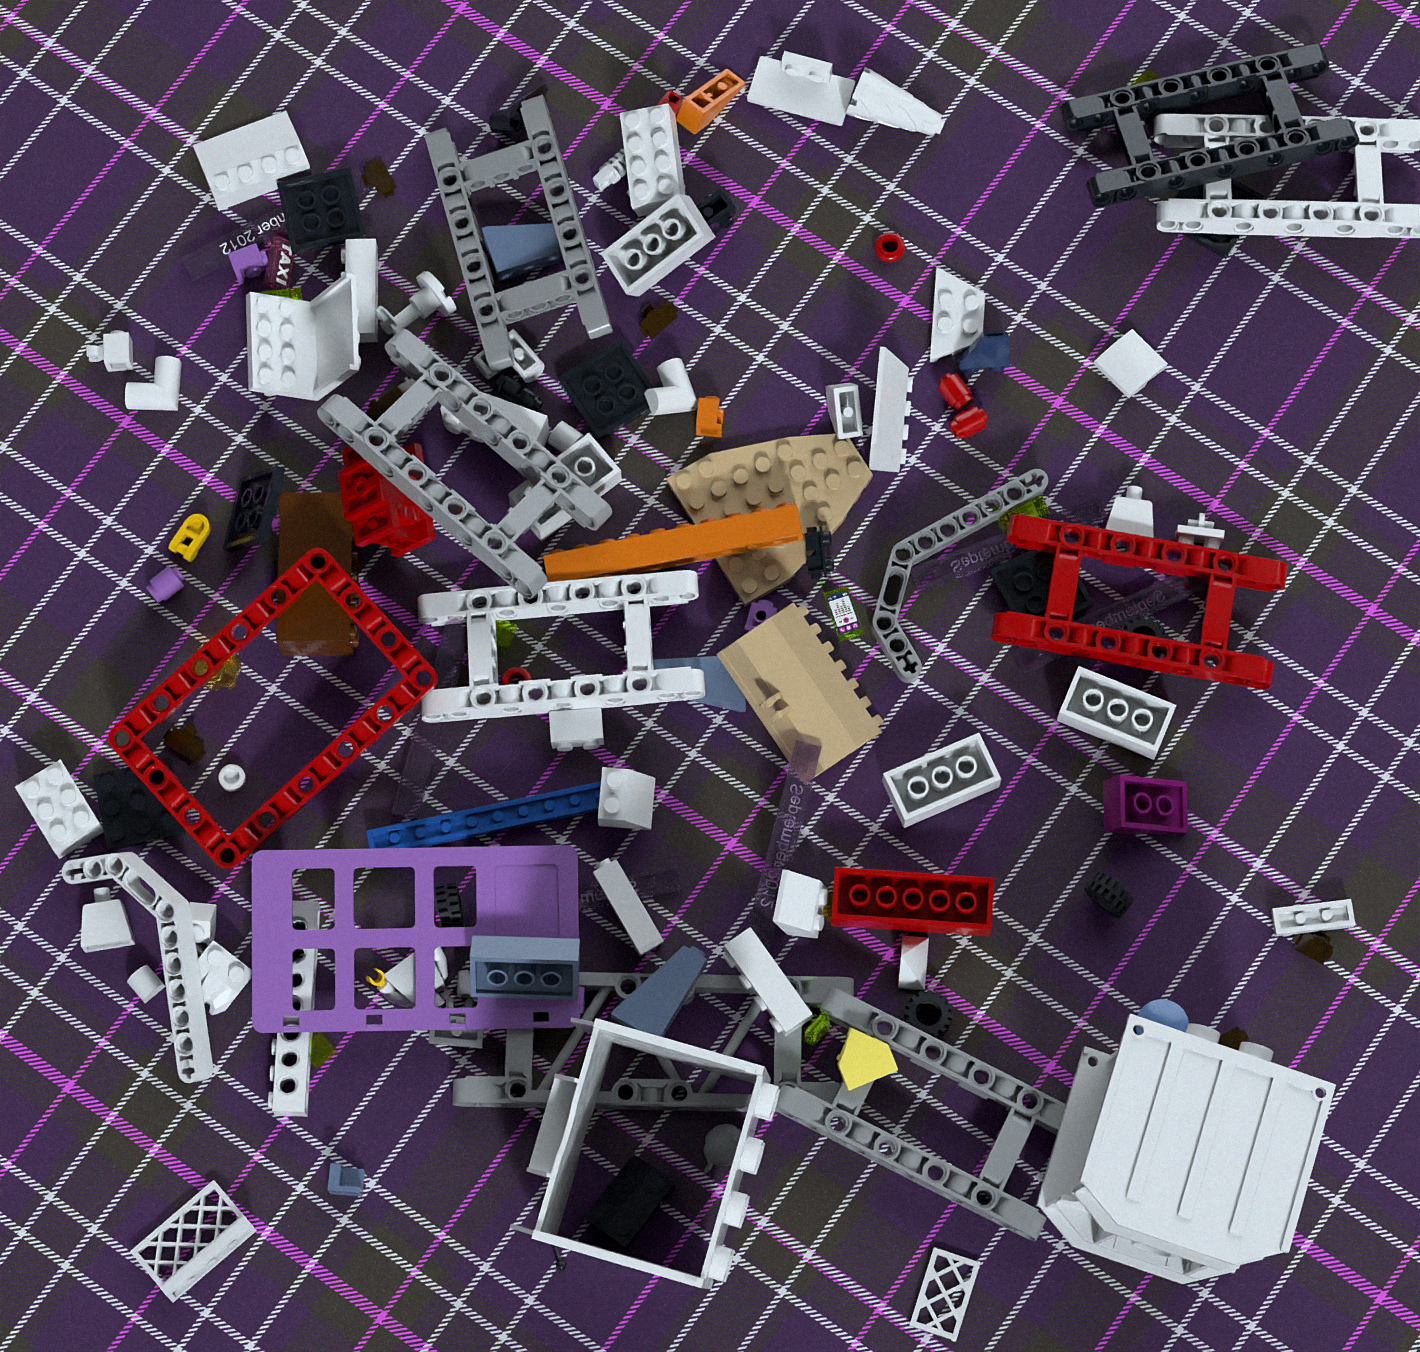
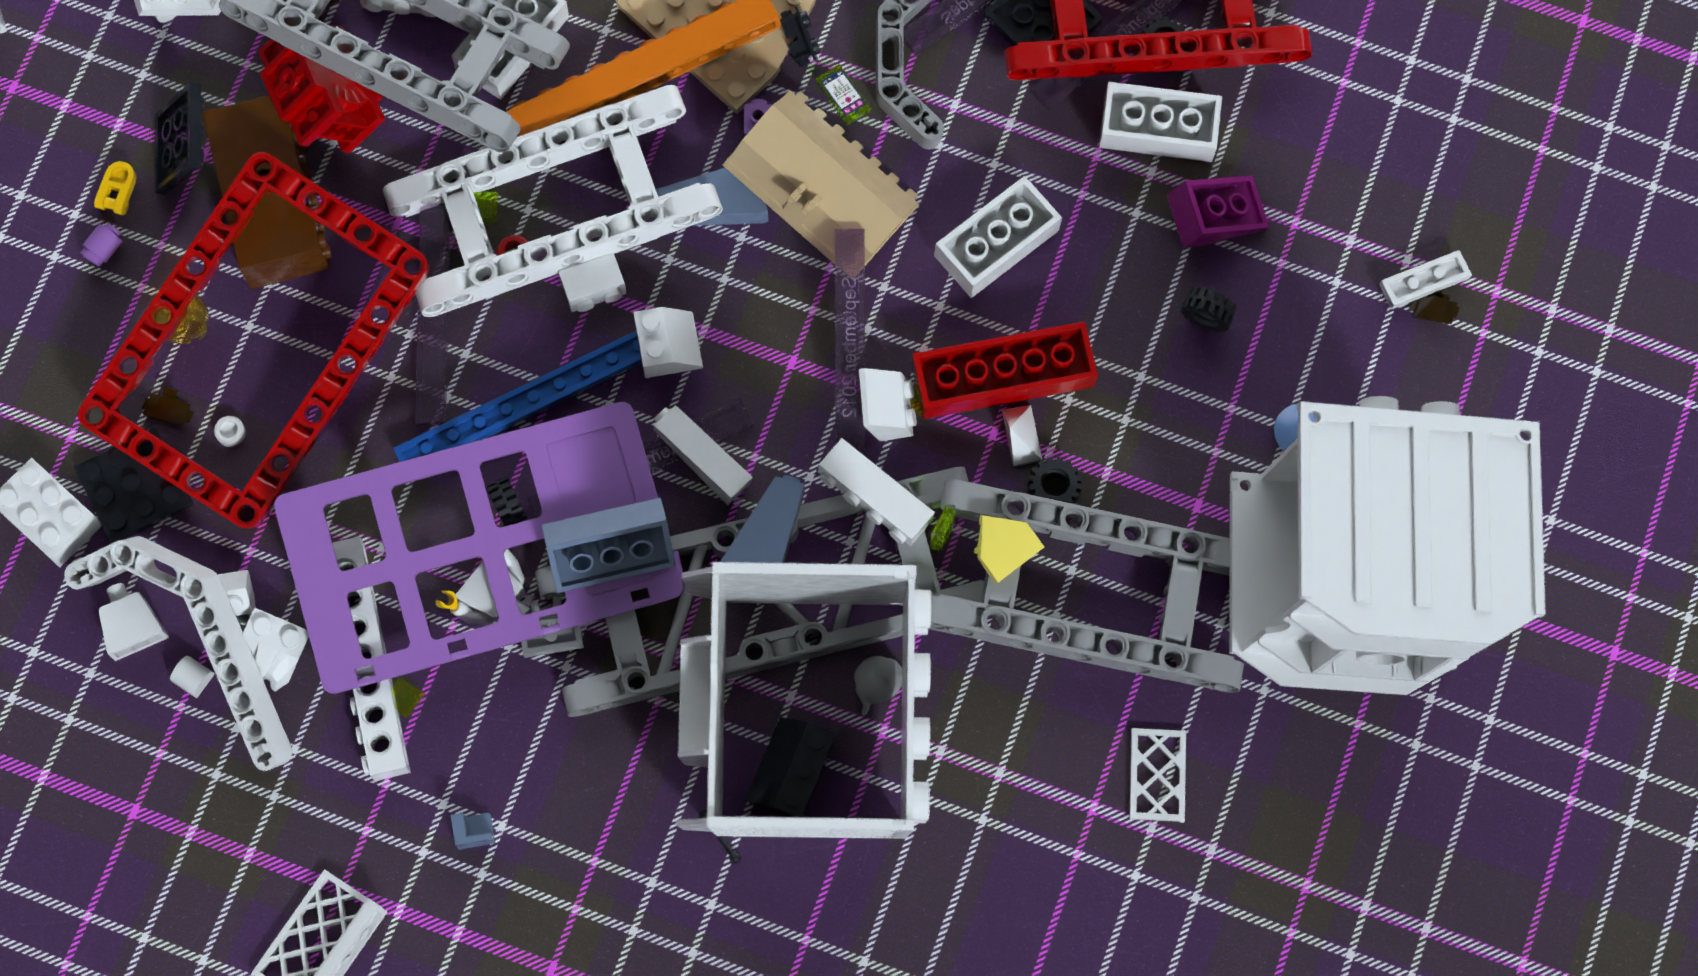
camera: 20 degrees left, 0 degrees up
(162, 393) = (44, 48): white brick -> none

